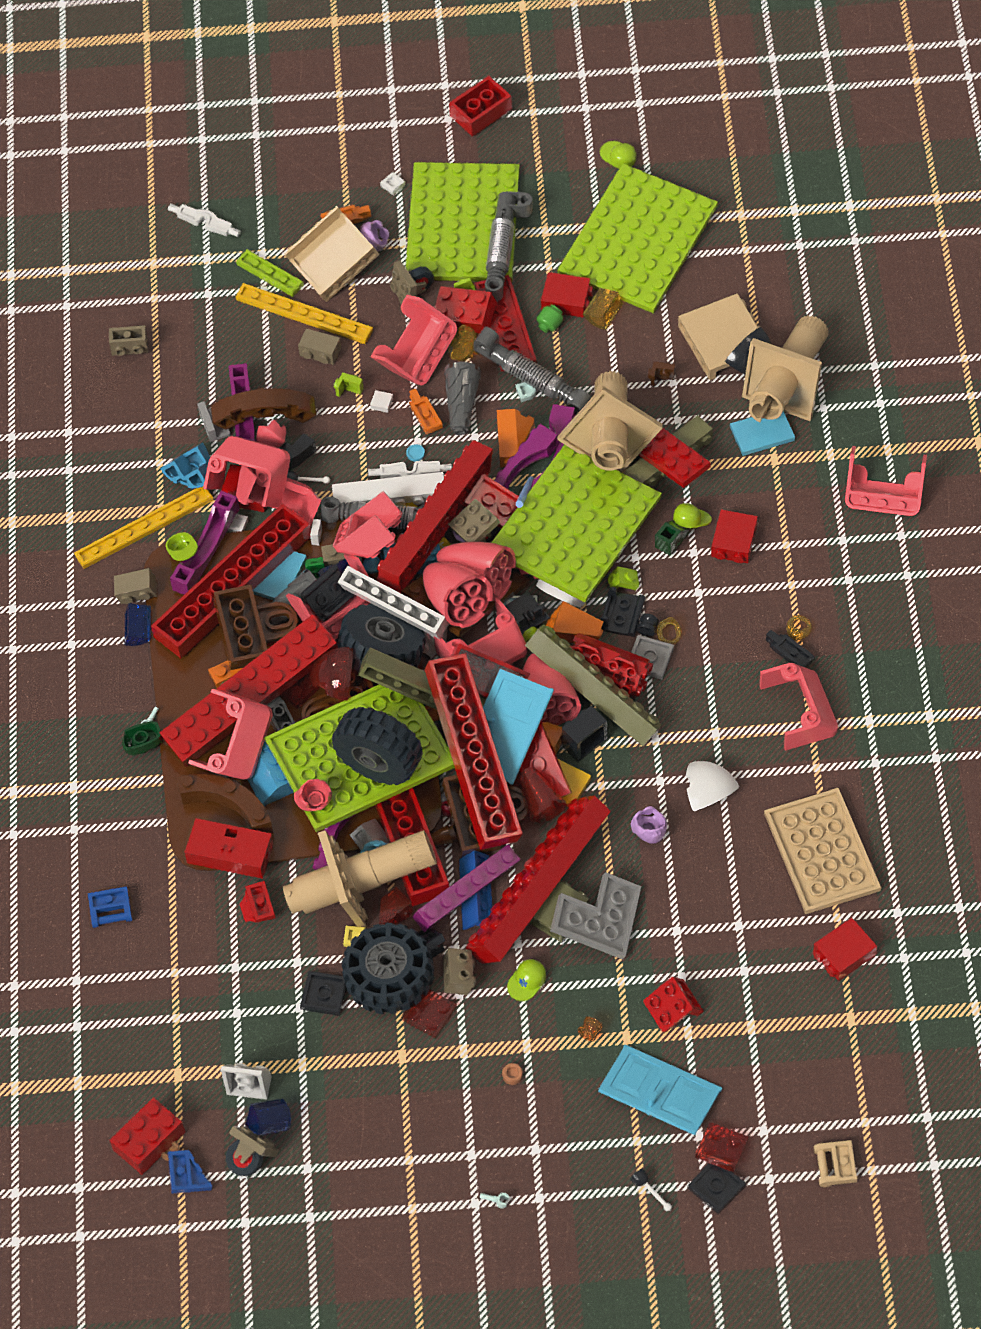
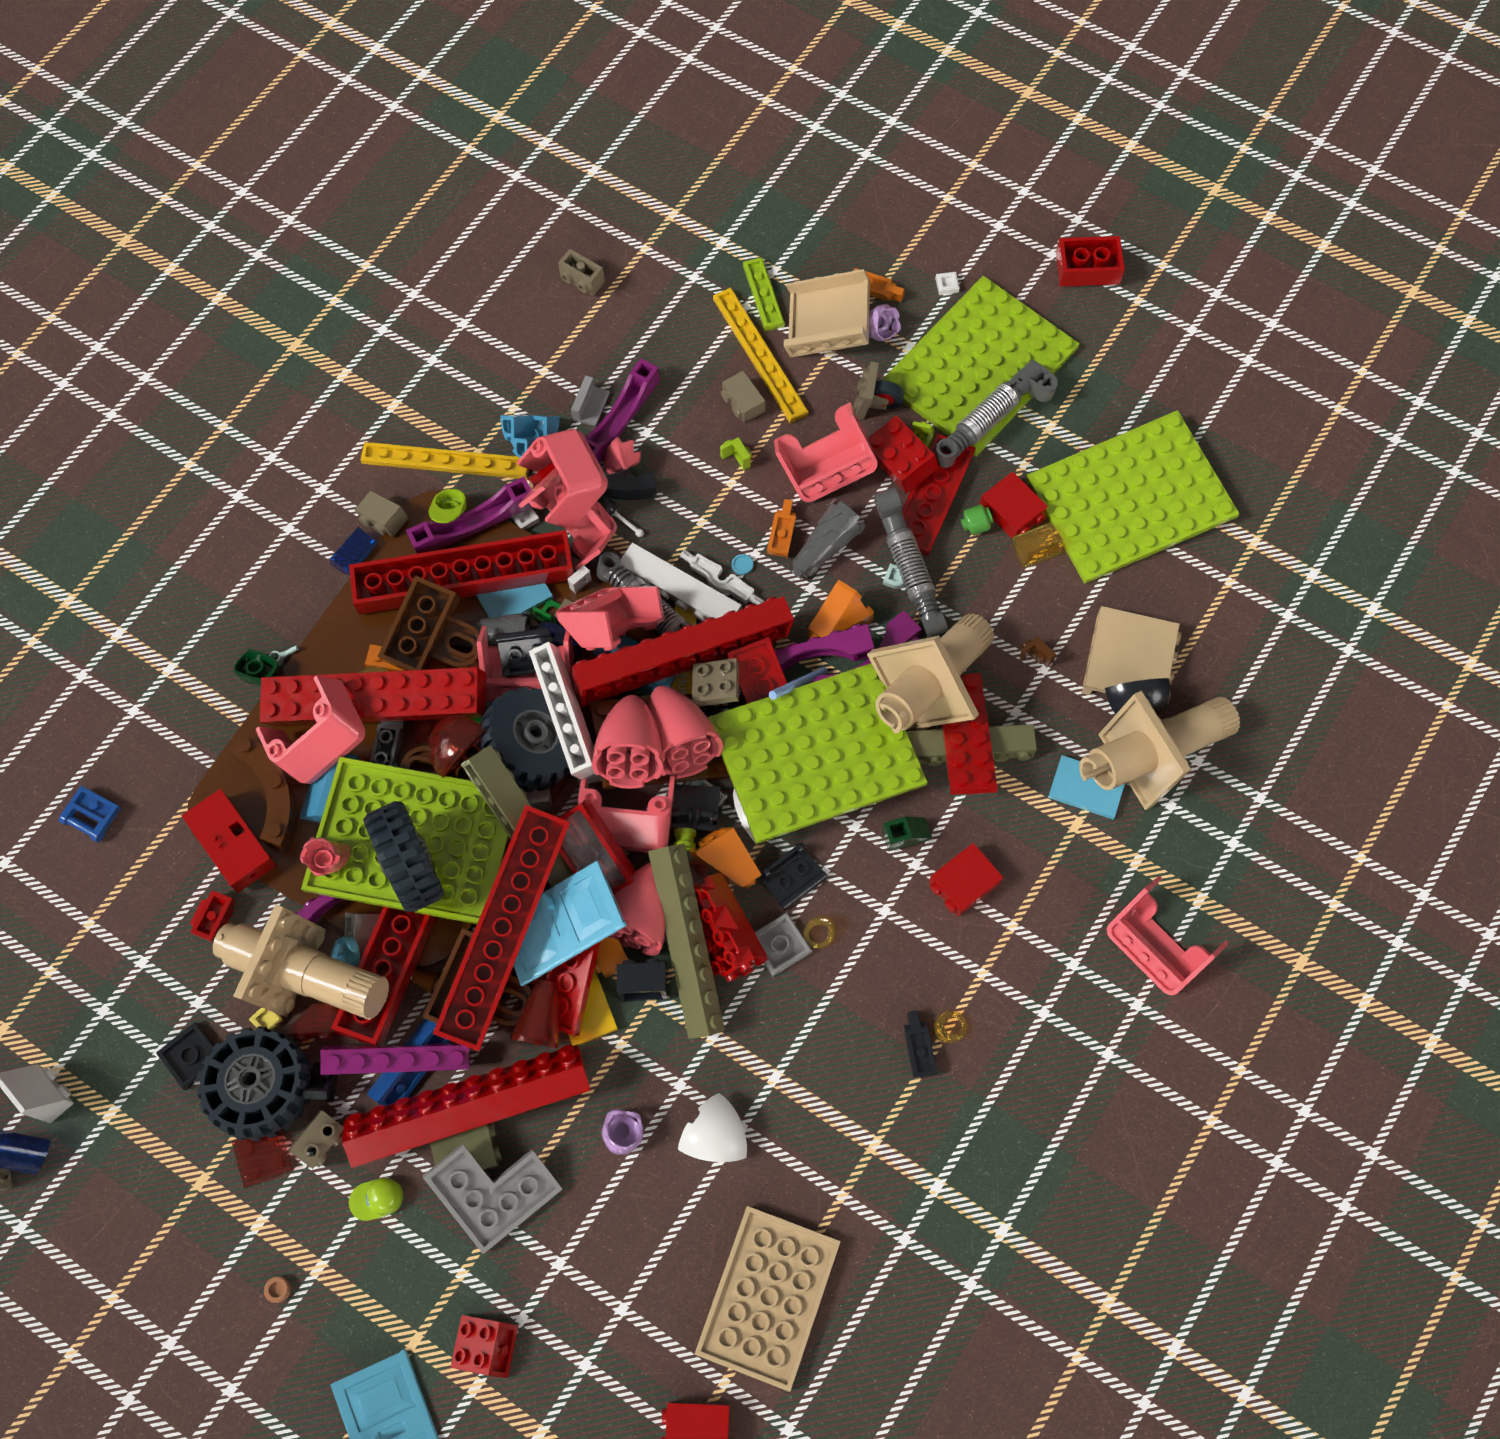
camera: 35 degrees right, 10 degrees up
(197, 216) = (753, 212): white piece -> none
(262, 404) = (640, 419): reddish brown brick -> none
(381, 401) = (754, 491): white tile -> none
(462, 344) = (872, 484): clear yellow plate -> none
(496, 1199) = (146, 1414): light aqua hand -> none
(590, 1029) = (383, 1306): clear orange wheel -> none
(618, 154) = (1184, 397): lime cap -> none
(624, 578) = (822, 842): lime bracket -> none
(647, 625) = (803, 910): black wheel -> none
(690, 516) = (940, 827): lime cap -> none
(819, 721) = (888, 1151): coral windscreen -> none

